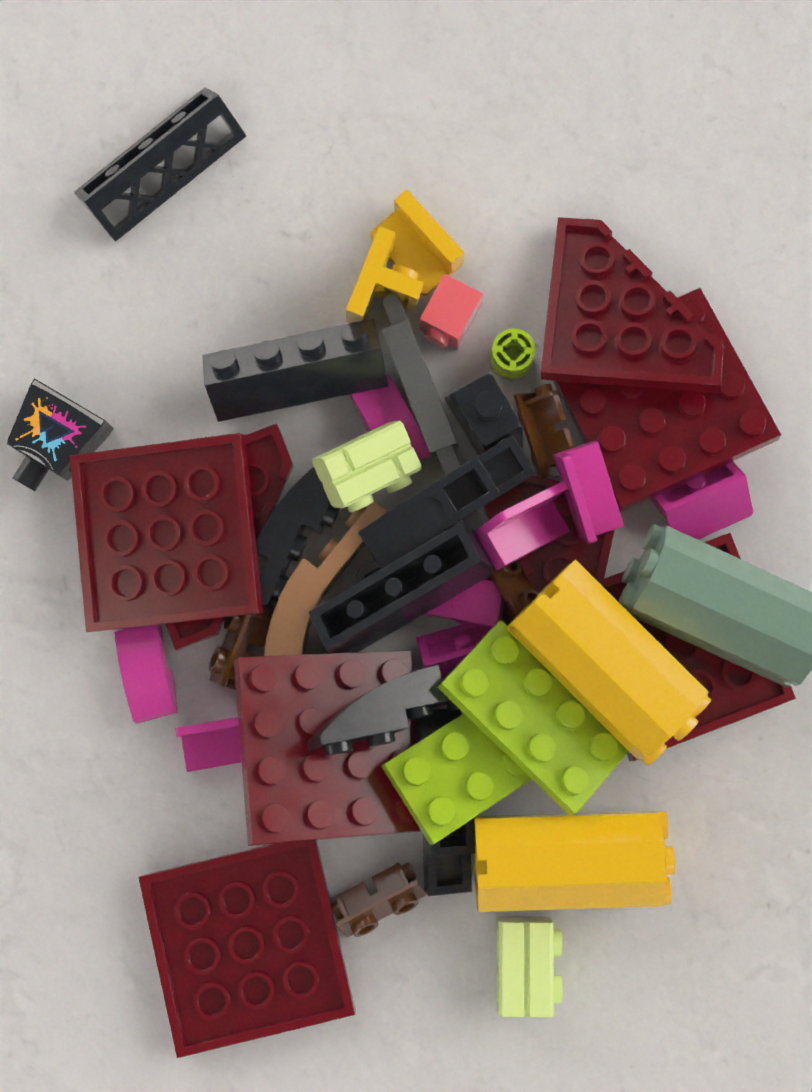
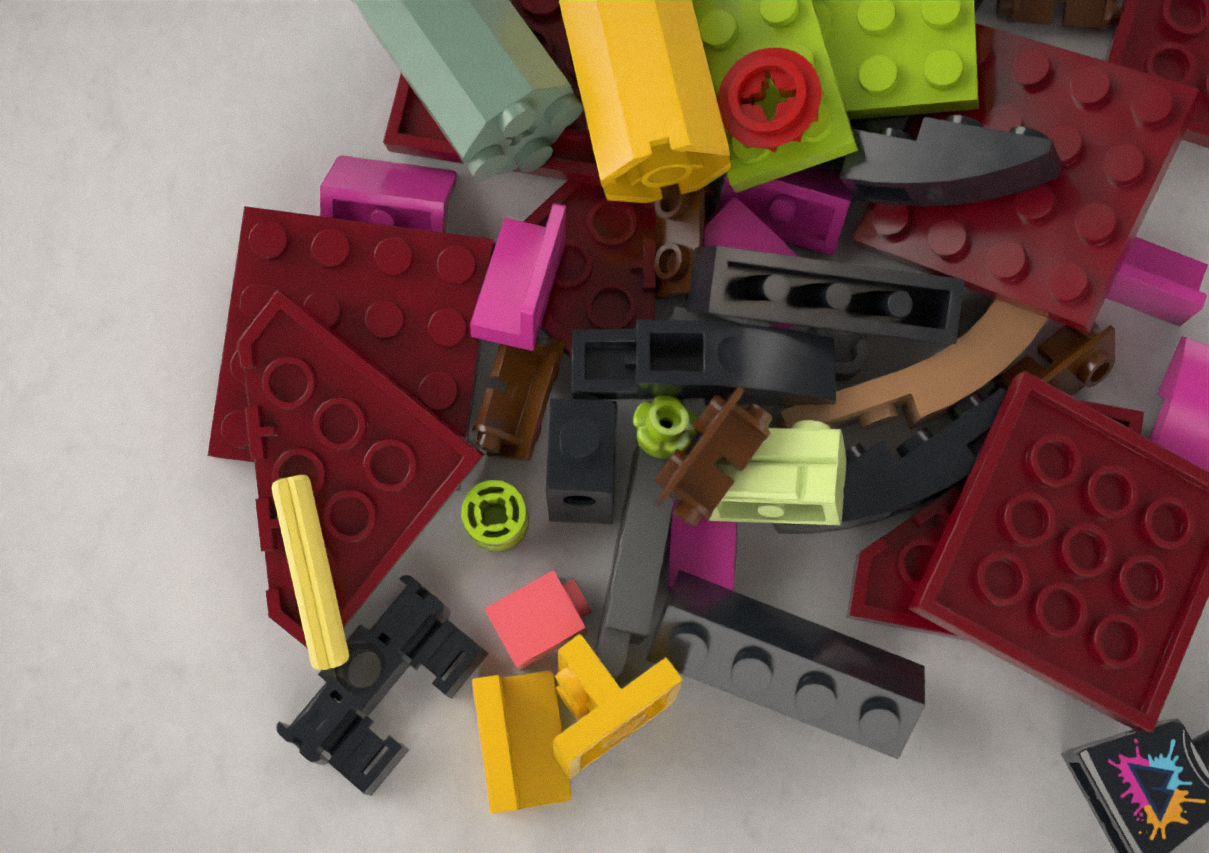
camera: 145 degrees left, 5 degrees down
(410, 424) = (726, 433): none -> reddish brown hinge
(435, 445) = (658, 440): none -> lime plate
(520, 264) = (403, 629): none -> black piece
(523, 527) = (629, 280): dark pink panel -> none
(528, 682) = (747, 84): none -> red gear
(593, 252) = (310, 572): none -> light yellow axle

